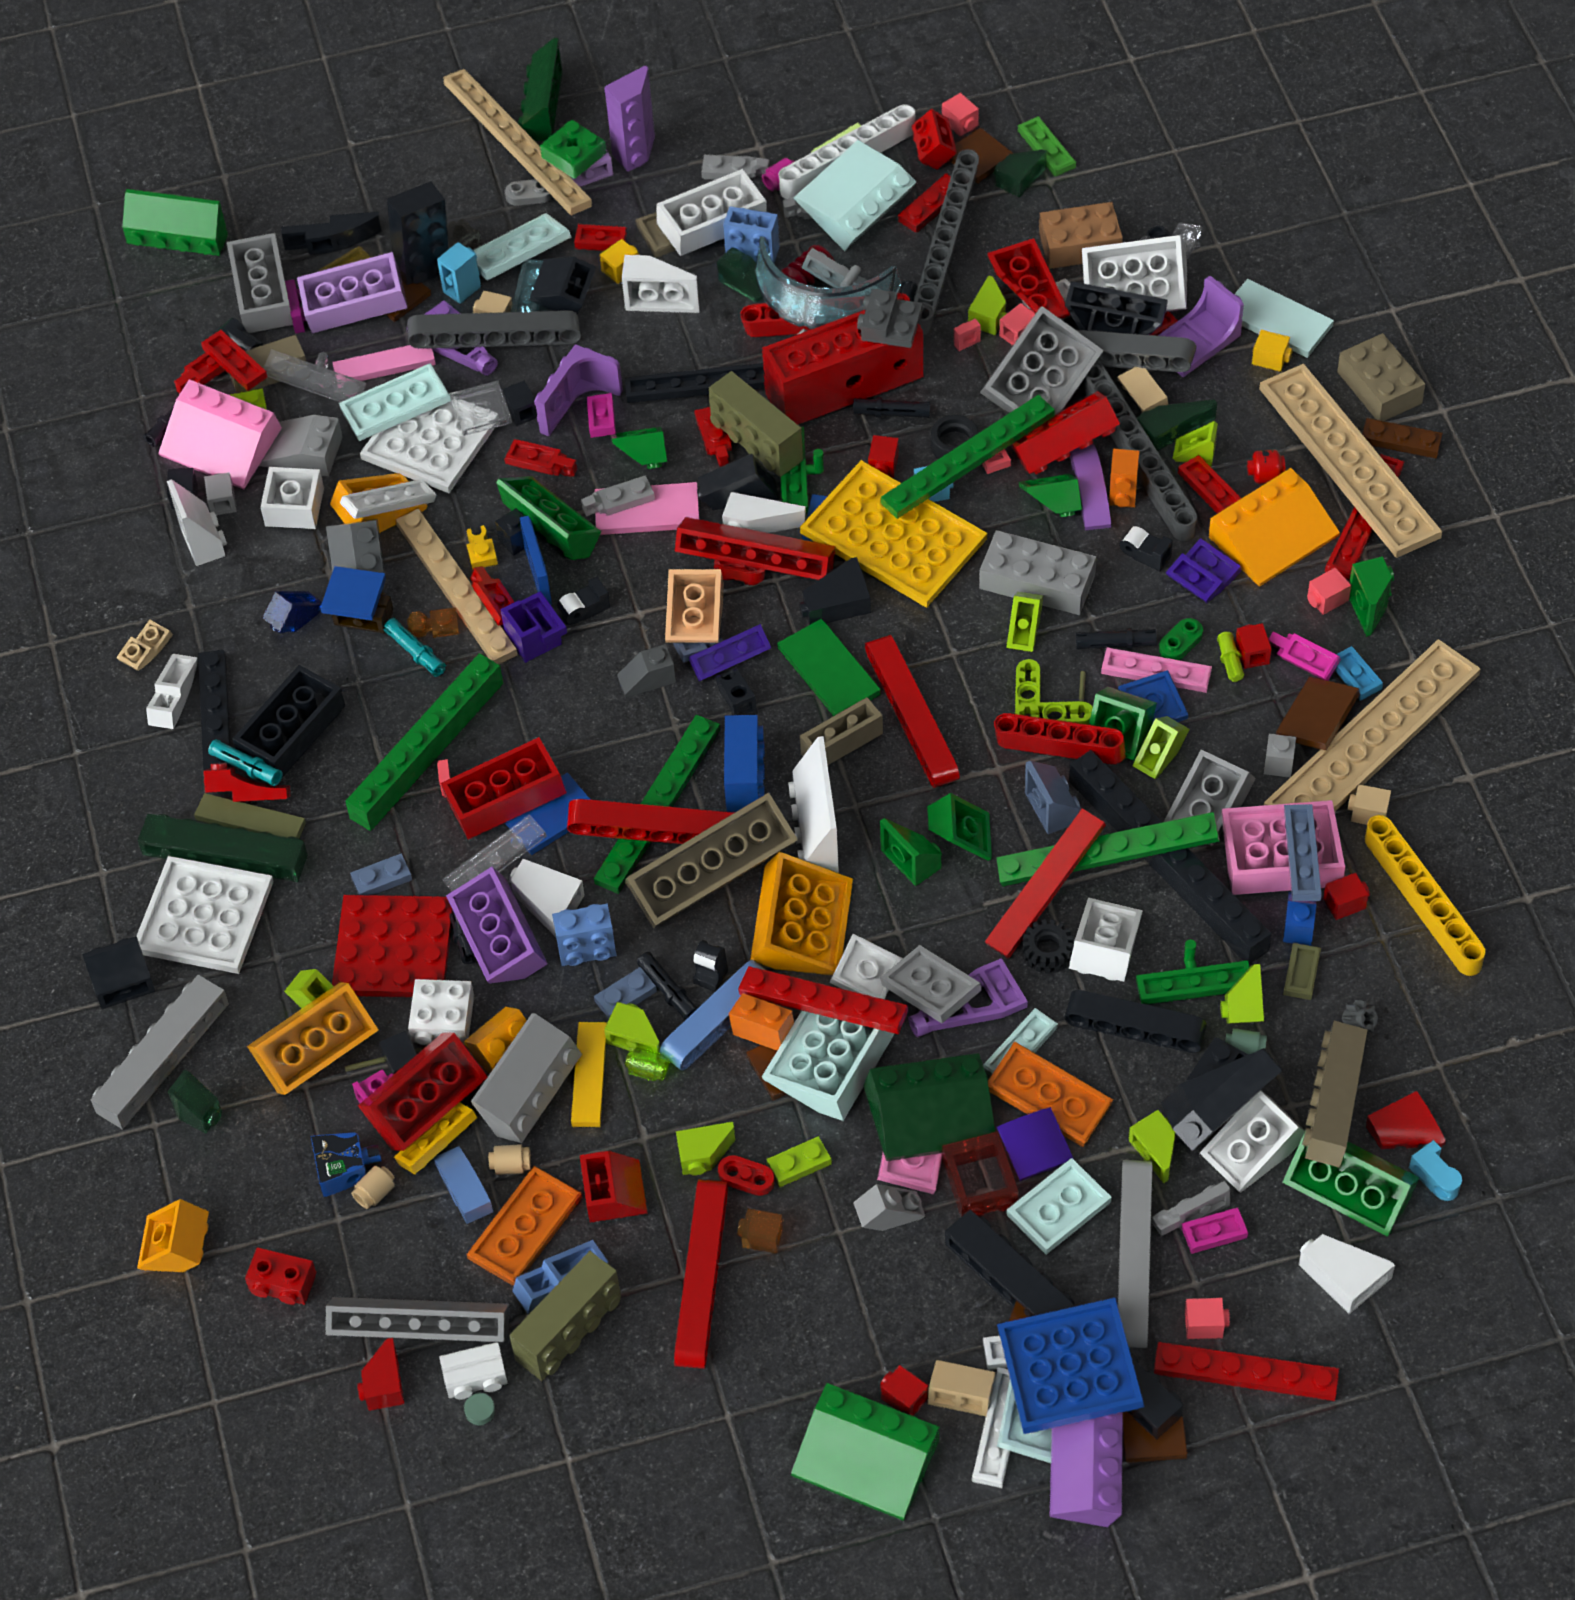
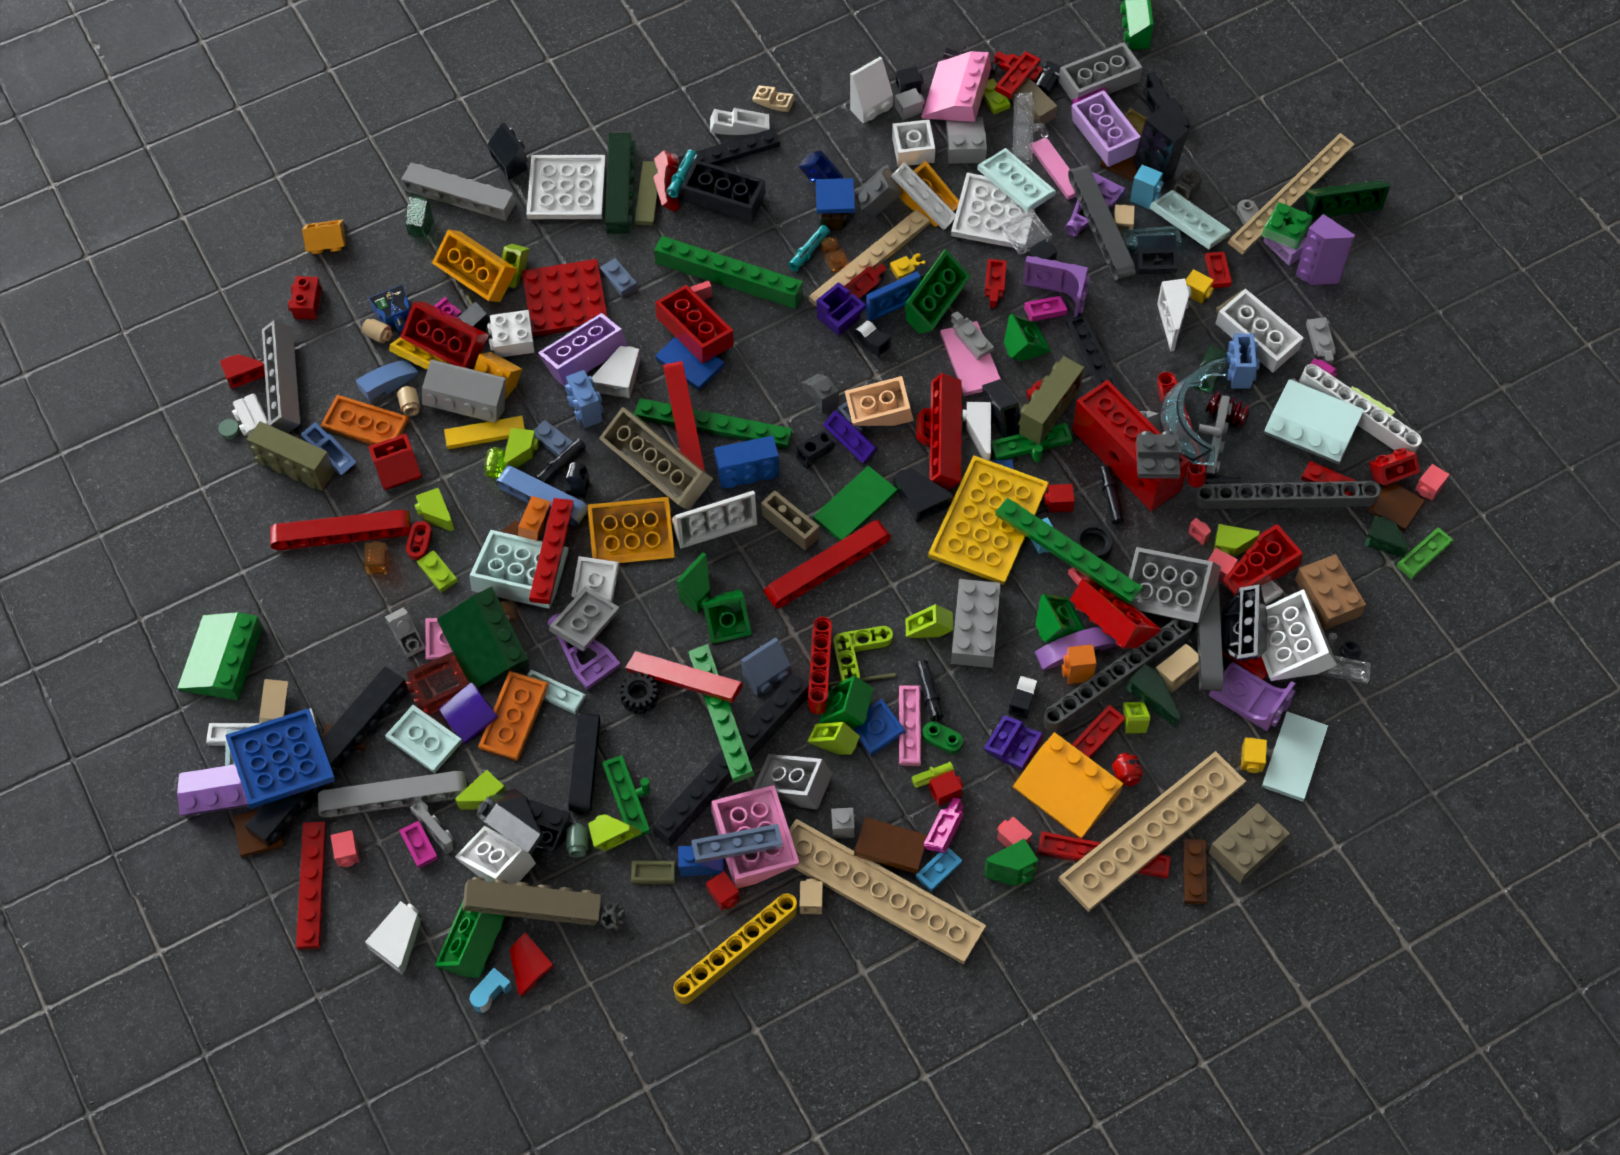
camera: 75 degrees right, 5 degrees up
(498, 853) = (645, 336): clear tile -> none
(903, 1391) = (265, 667): red brick -> none
(1105, 939) = (652, 729): white slope -> none

